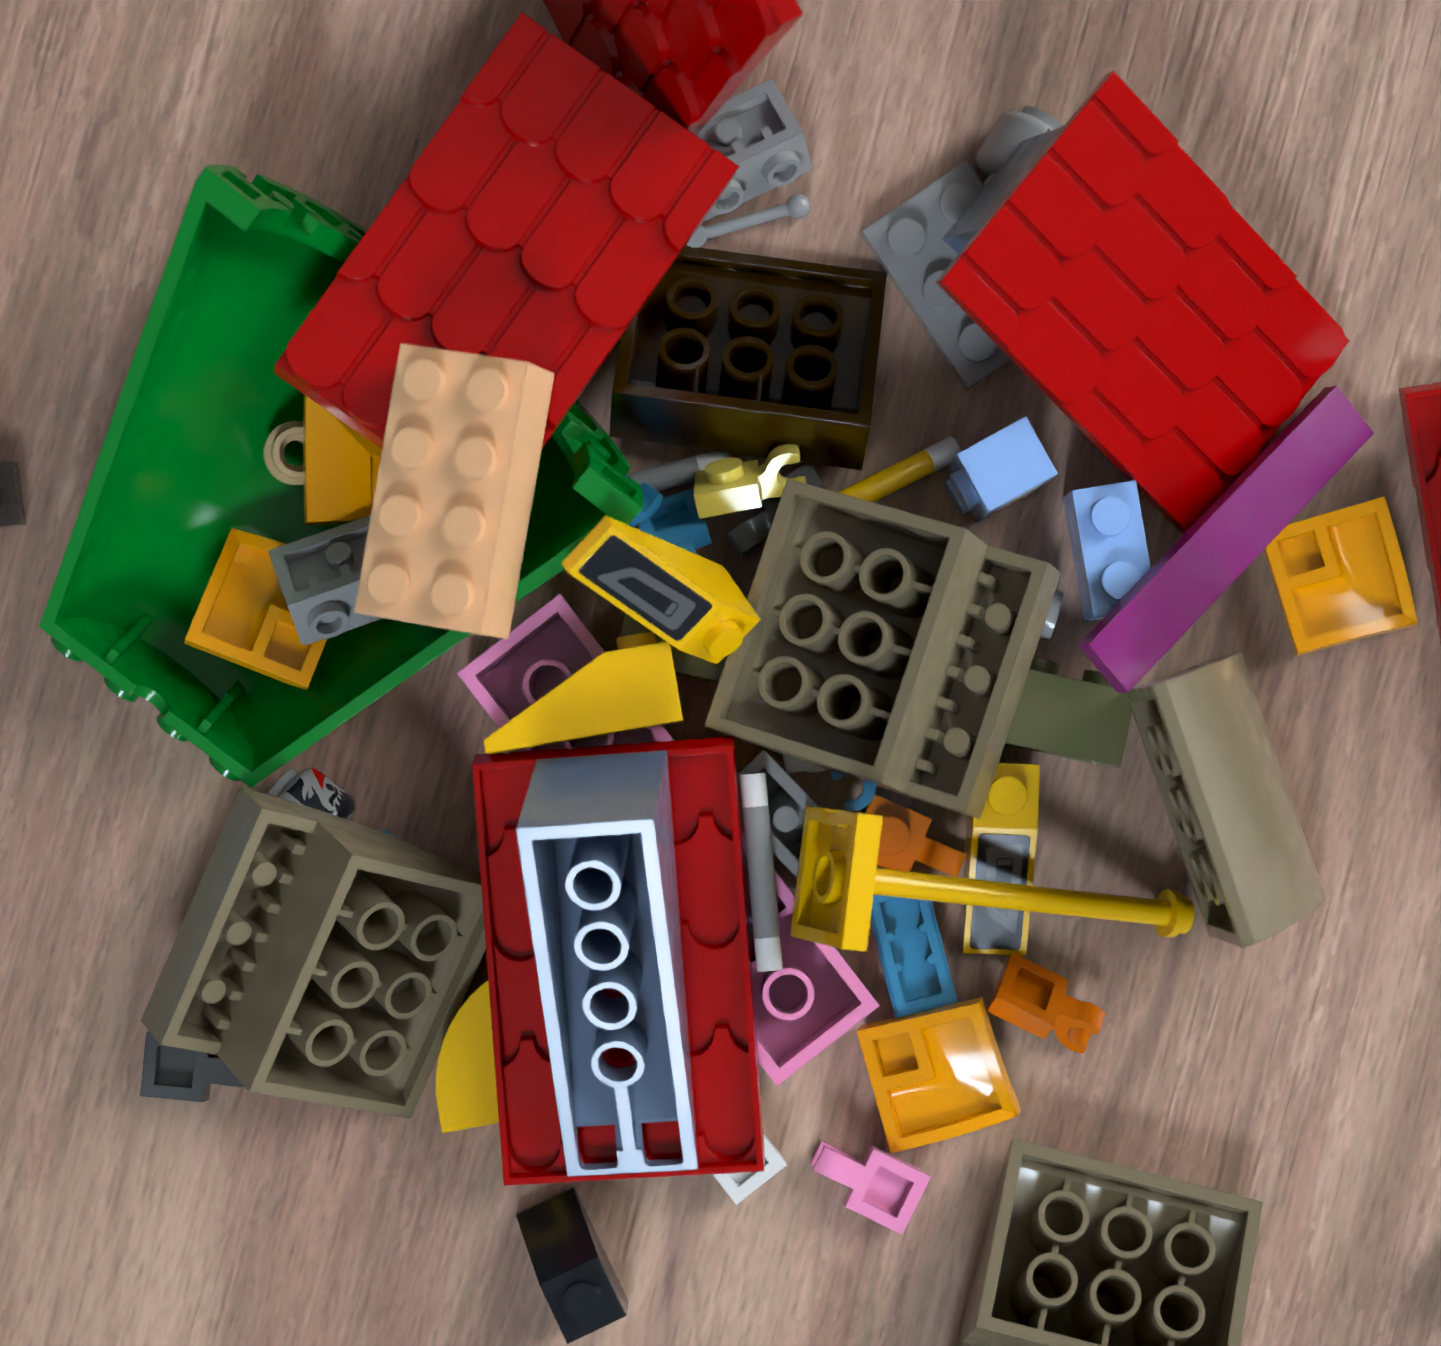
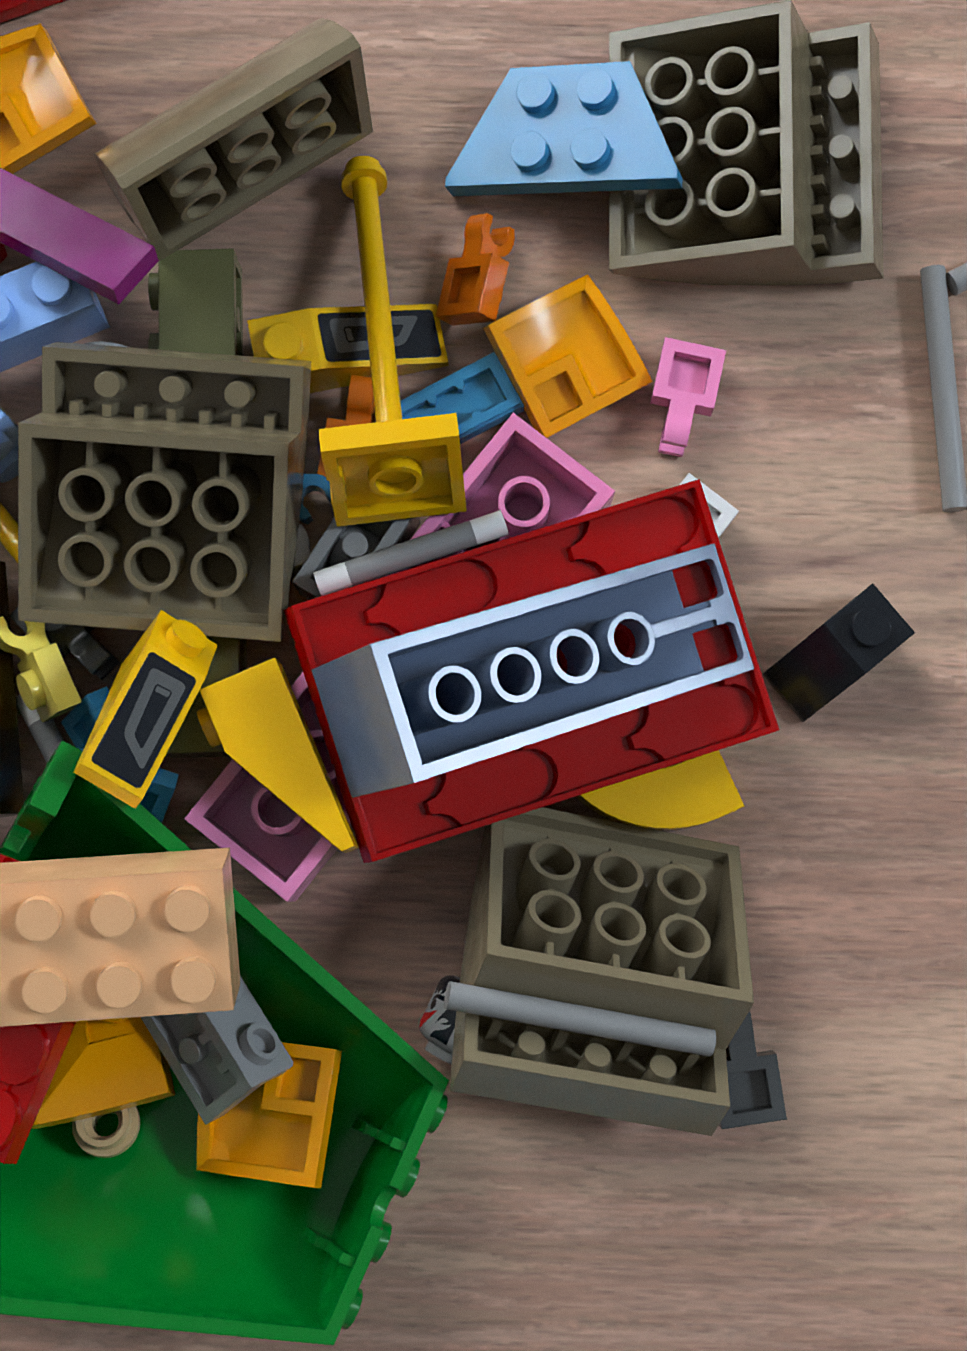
camera: 100 degrees left, 5 degrees down
(275, 925) = (579, 1019): none -> light grey bar
(1164, 1130) = (565, 134): none -> wing

